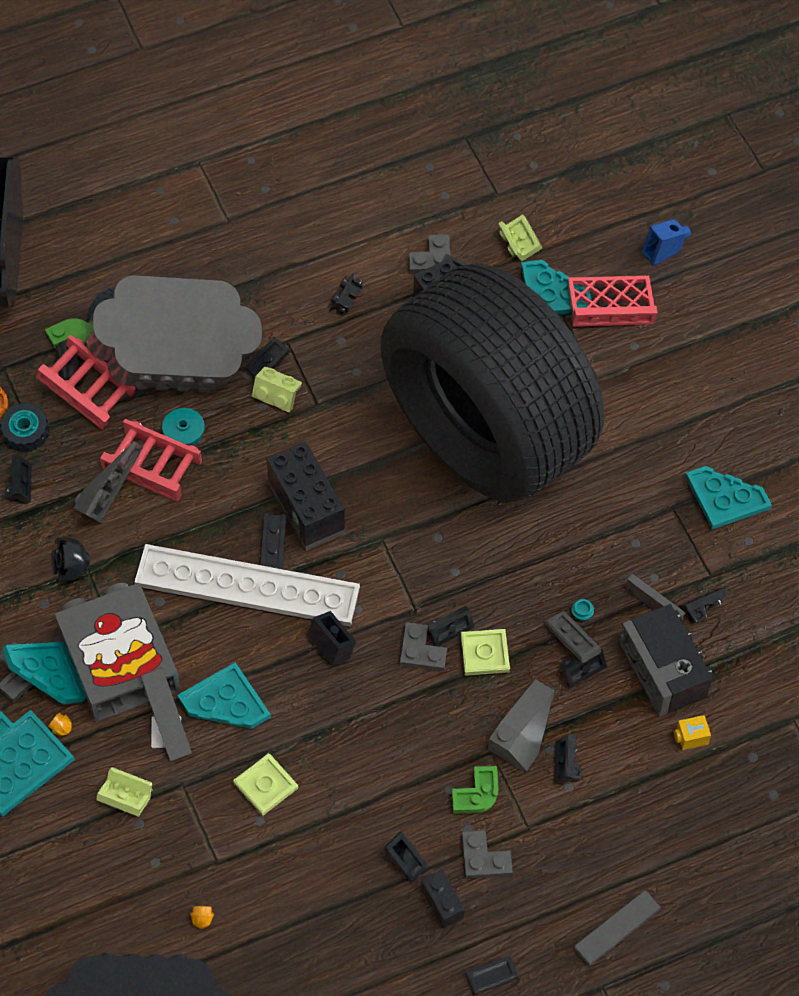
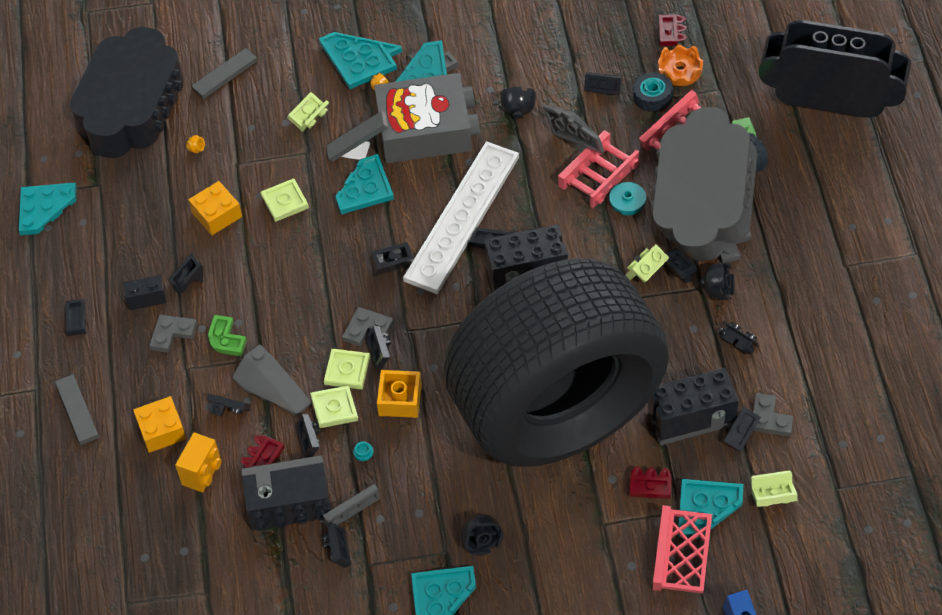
camera: 110 degrees right, 5 degrees down
(74, 919) = (224, 73): none -> dark grey tile
(284, 318) = (719, 281): none -> black cylinder
(299, 857) = (215, 208): none -> light orange brick
(508, 585) = (399, 393): none -> light orange brick
(537, 651) = (334, 406): none -> yellowish green plate
(573, 637) = (335, 432): dark grey tile -> none
(615, 823) = (160, 424): none -> light orange brick
(620, 704) = (265, 454): none -> dark red plate
(648, 472) = (481, 534): none -> black cylinder
(656, 759) = (198, 462): none -> light orange brick
(692, 732) = (217, 504): yellow brick -> none

